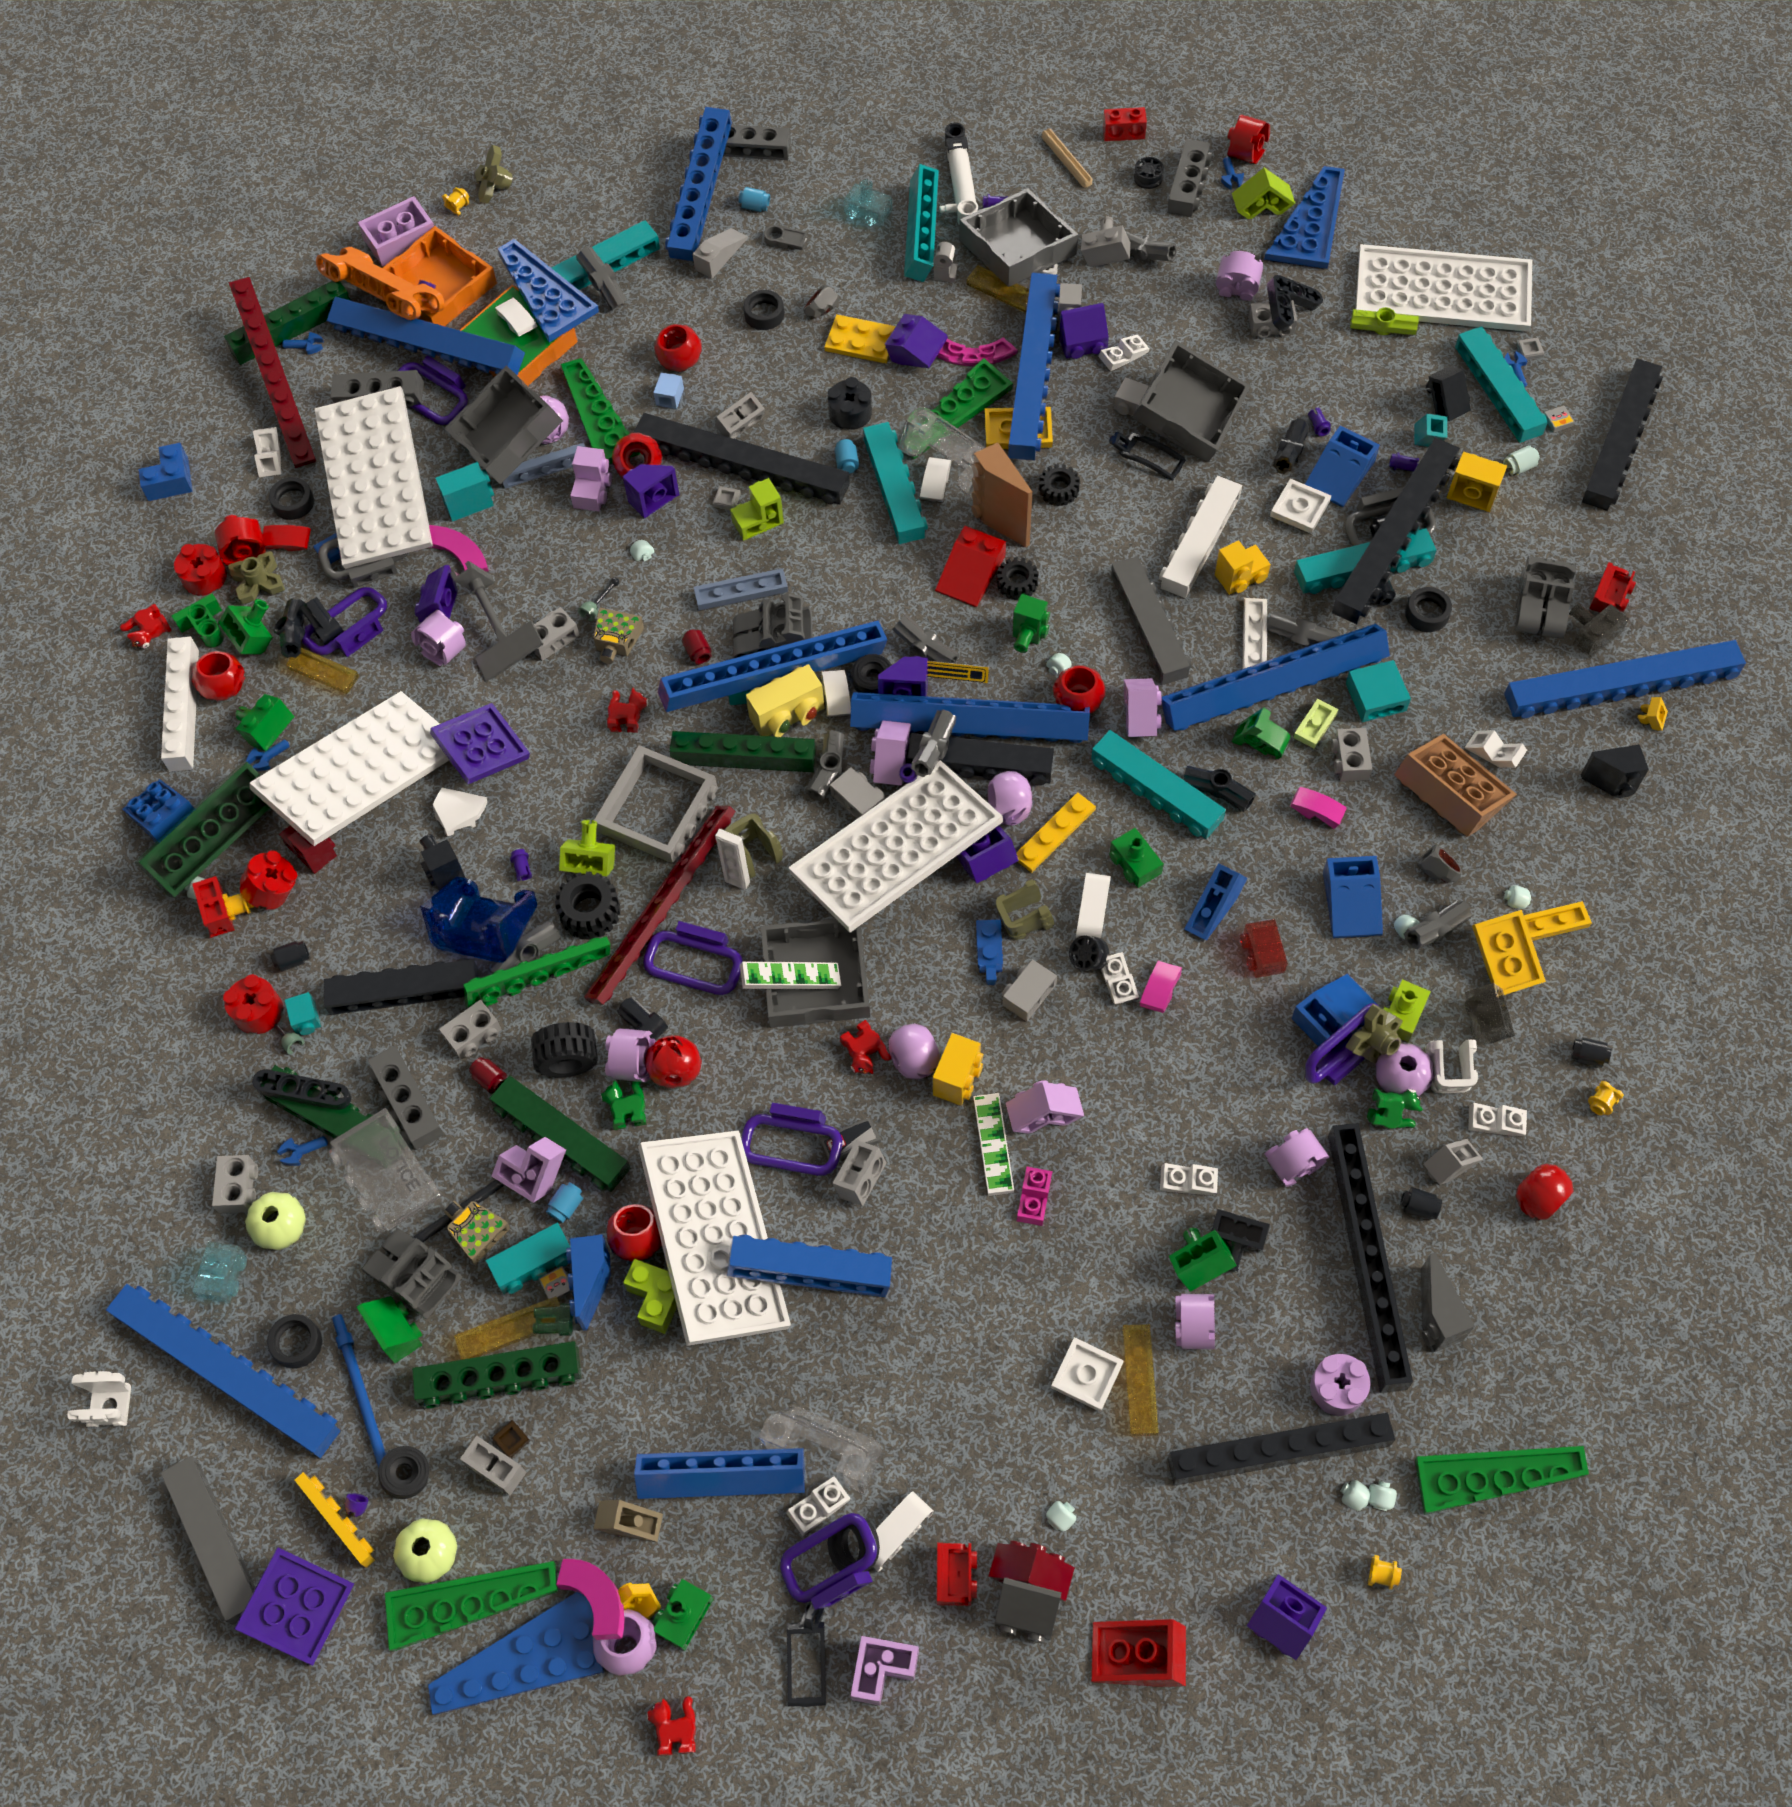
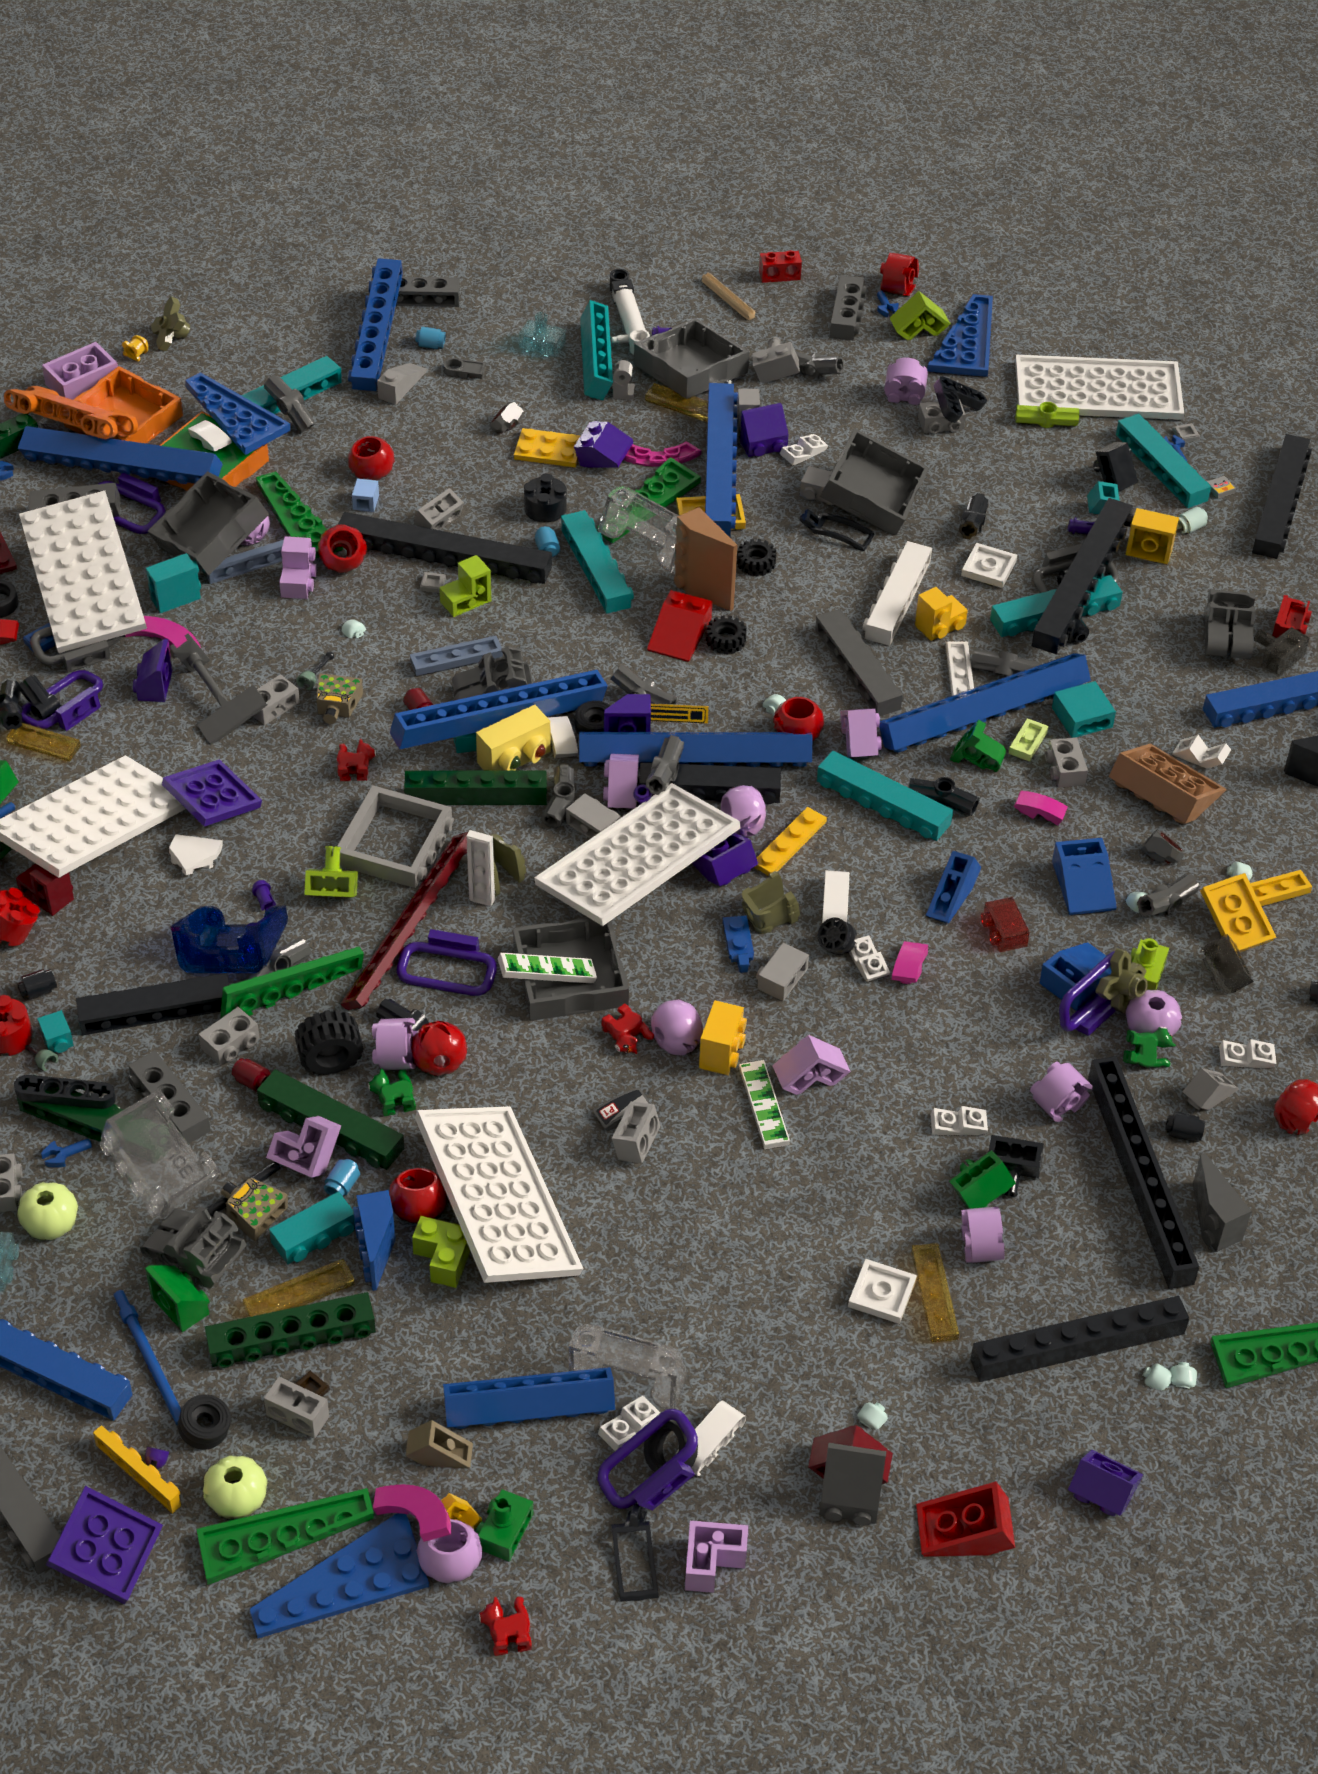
camera: 10 degrees left, 15 degrees down
(306, 1356) = (83, 1333): black tyre -> none
(439, 633) = (159, 701): lavender brick -> none
(439, 862) = (185, 891): black brick -> none
(555, 1283) = (341, 1248): tile -> none
(563, 1321) = (354, 1276): clear green piece -> none
(587, 922) = (336, 908): black tyre -> none
(650, 487) = (358, 572): dark purple slope -> none
(764, 322) = (451, 437): black tyre -> none
(796, 1119) = (570, 1091): dark purple bar -> none
(809, 1266) = (597, 1211): blue brick -> none
(935, 479) = (636, 558): white slope -> none
(954, 1574) = (774, 1470): red hinge -> none
(1029, 622) = (744, 665): green brick -> none
(1034, 1196) = (810, 1145): dark pink slope -> none
(1136, 858) = (871, 856): green brick -> none
(1149, 173) = (808, 306): black wheel -> none
(1320, 424) = (999, 500): dark purple pin -> none
(1343, 465) = (1025, 528): blue slope -> none
(1351, 1374) = (1129, 1278): lavender brick -> none
(1384, 1573) = (1194, 1437): yellow brick -> none
(1428, 624) = (1117, 653): black tyre -> none
(1469, 1075) = (1214, 1013): white piece -> none

